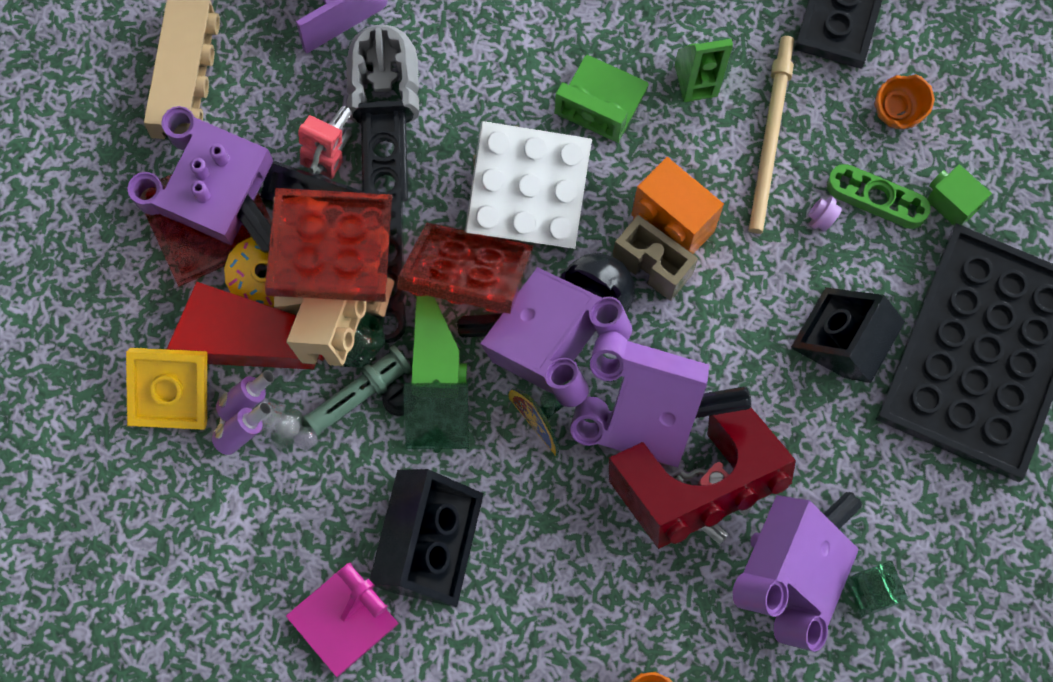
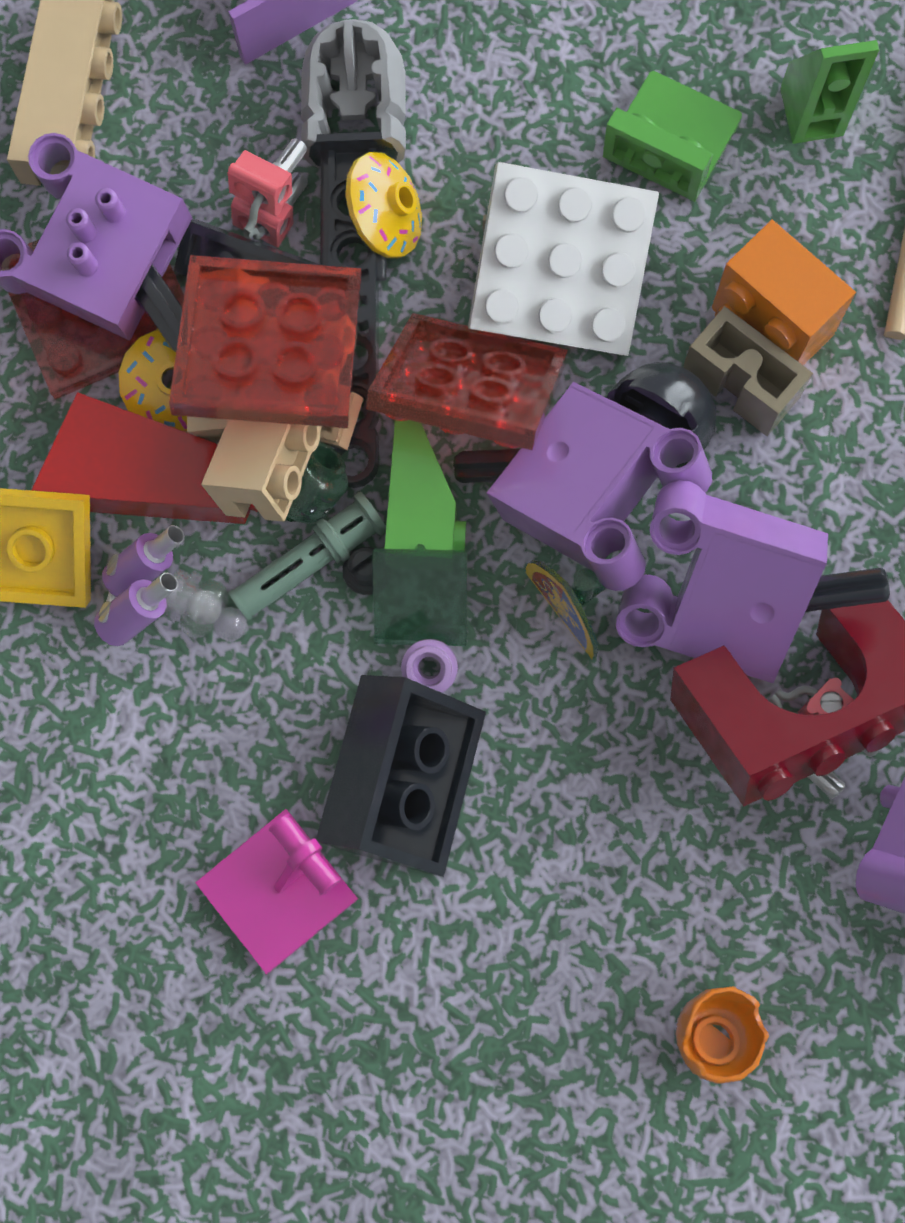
camera: 10 degrees right, 5 degrees up
(405, 149) = (383, 205): none -> yellow dish
(447, 451) = (430, 648): none -> lavender plate

